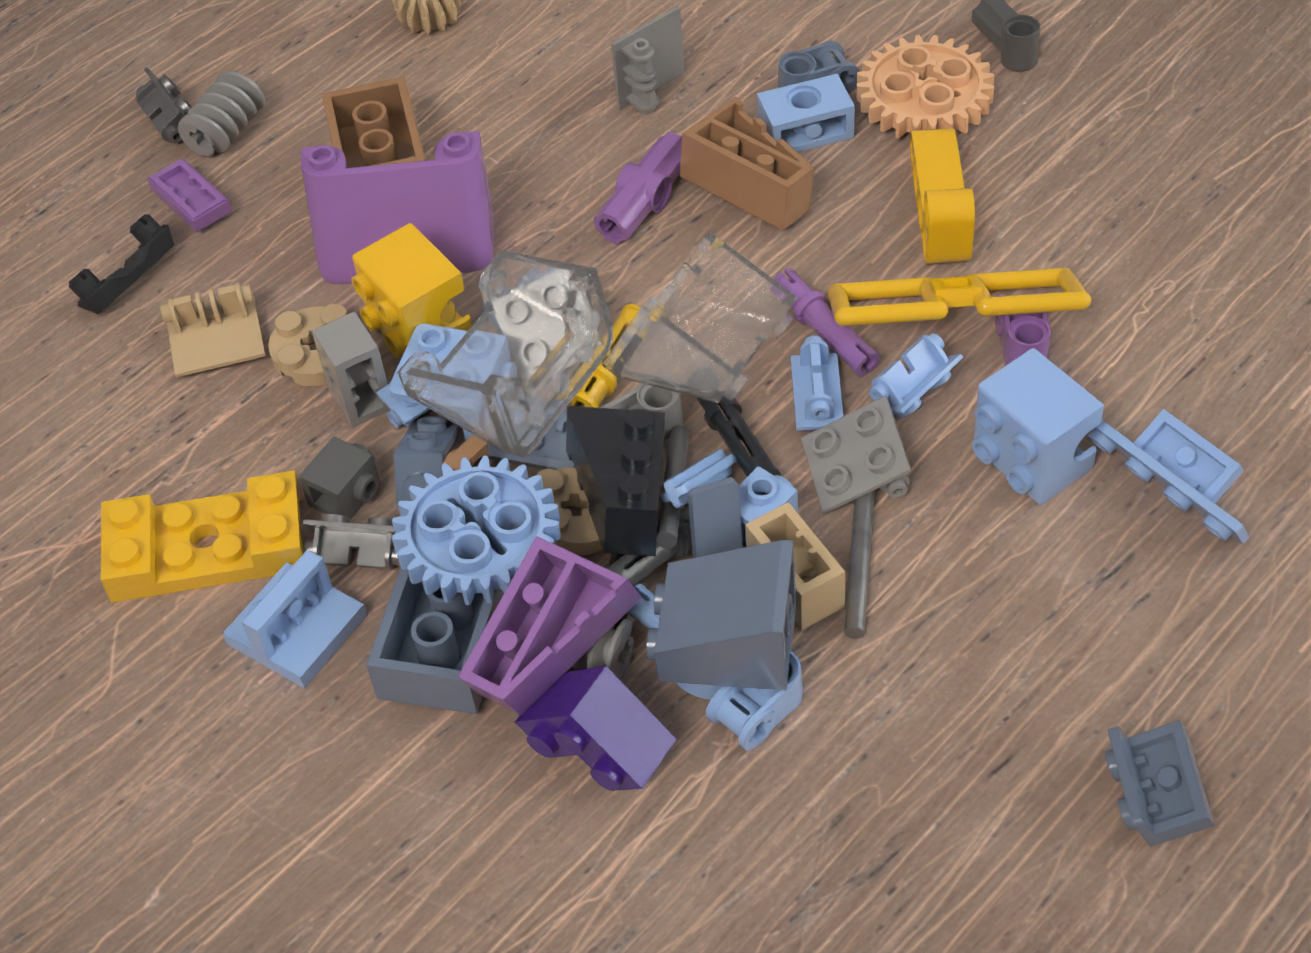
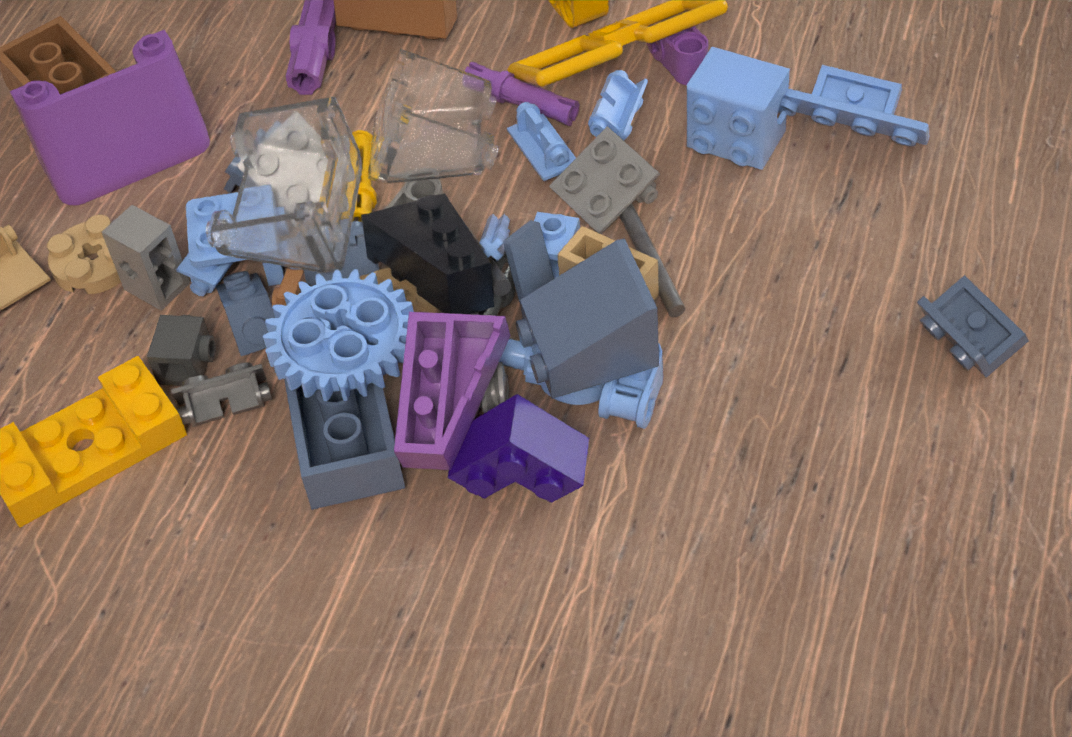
camera: 25 degrees left, 0 degrees up
(296, 621) = (203, 475): light blue bracket -> none
(406, 285) = (160, 174): yellow piece -> none
(733, 412) = (495, 197): black pin -> none

